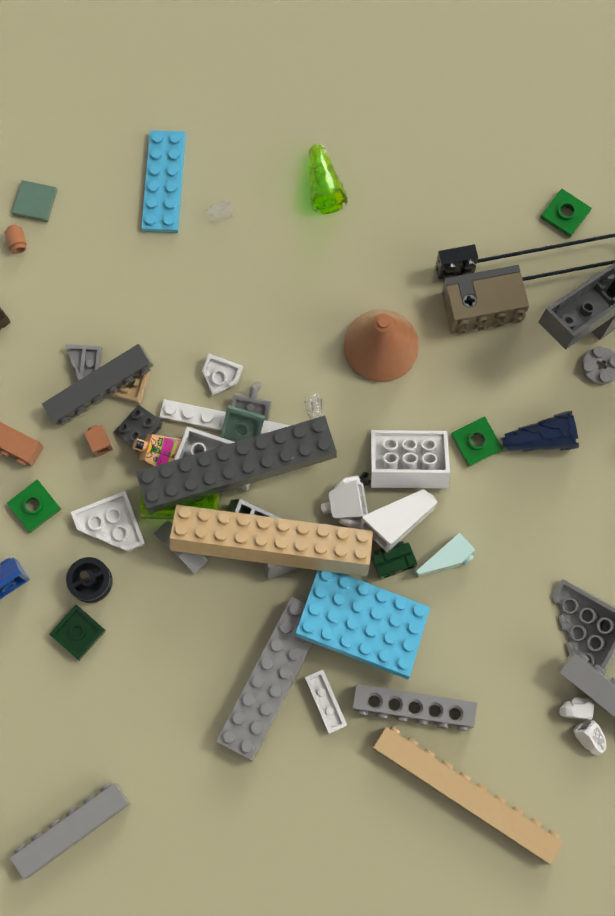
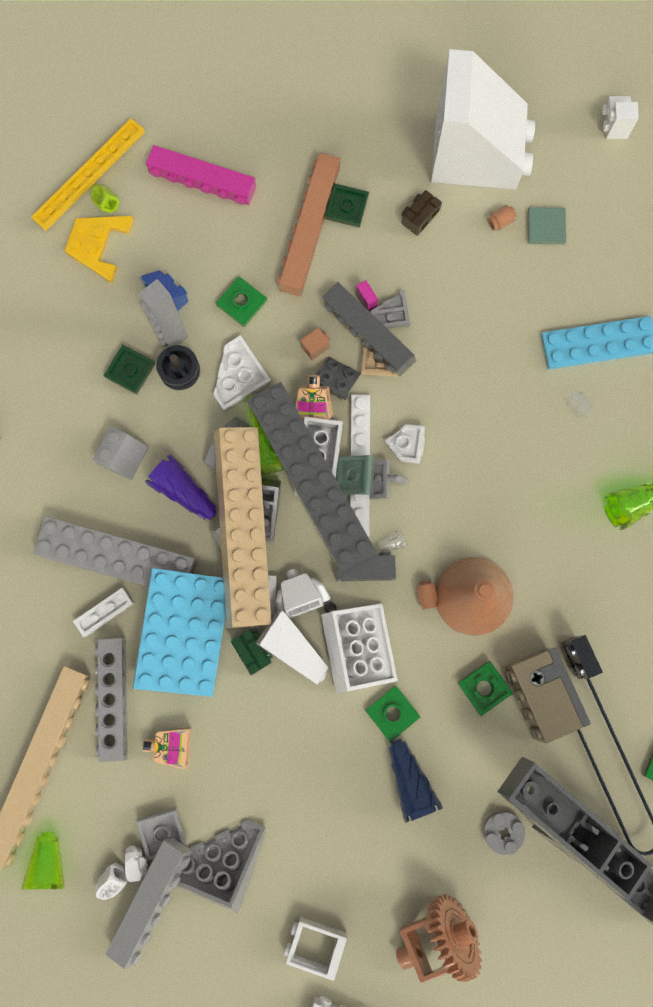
camera: 75 degrees right, 5 degrees up
(39, 571) = (162, 314): none -> light grey brick
(61, 380) = (366, 295): none -> dark pink piece
(165, 655) = (120, 453): none -> light grey slope
(214, 600) = (179, 486): none -> dark purple cone
(338, 422) = (373, 569): none -> dark grey brick
(371, 386) = (427, 594): none -> nougat brick
(450, 556) = (267, 708): light aqua slope -> none
(471, 341) = (498, 692): none -> green piece
(471, 656) = (170, 747): none -> torso
(548, 682) = (158, 827): none -> light grey plate
(565, 799) = (44, 864): none -> clear neon green cone

